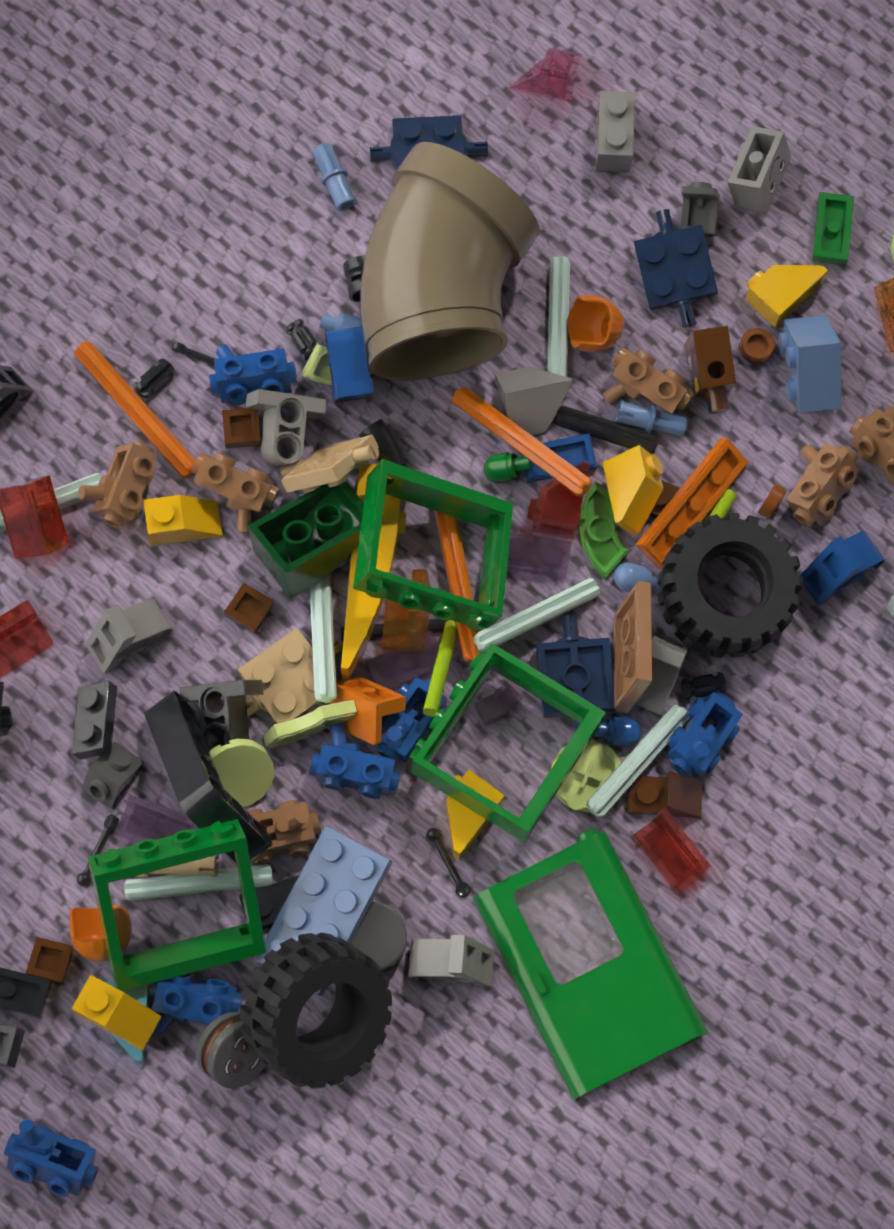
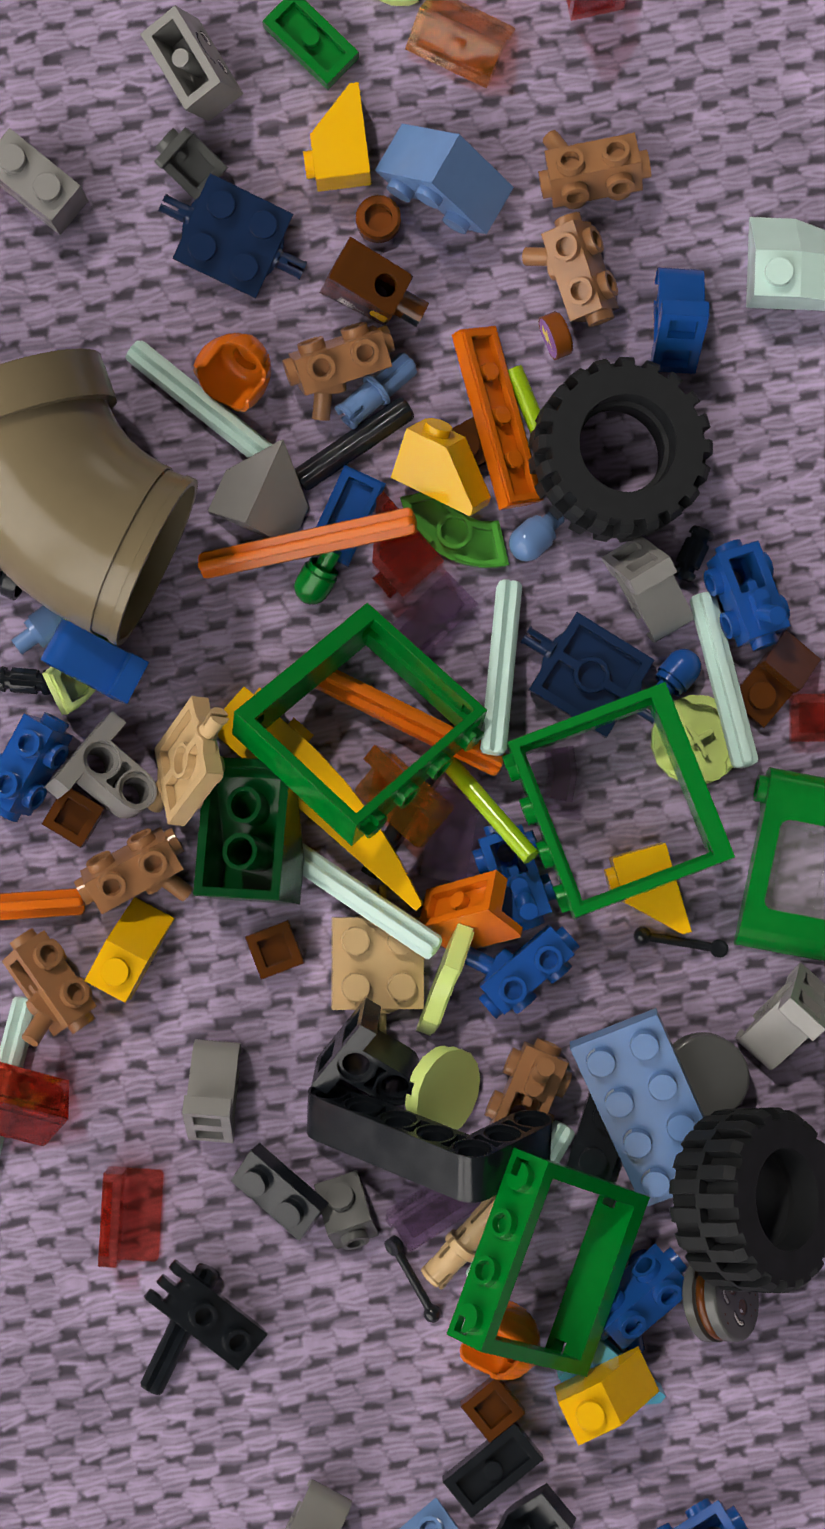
camera: 50 degrees left, 15 degrees up
(387, 442) = (202, 682): black cone -> none
(632, 647) = (613, 599): medium nougat tile -> none

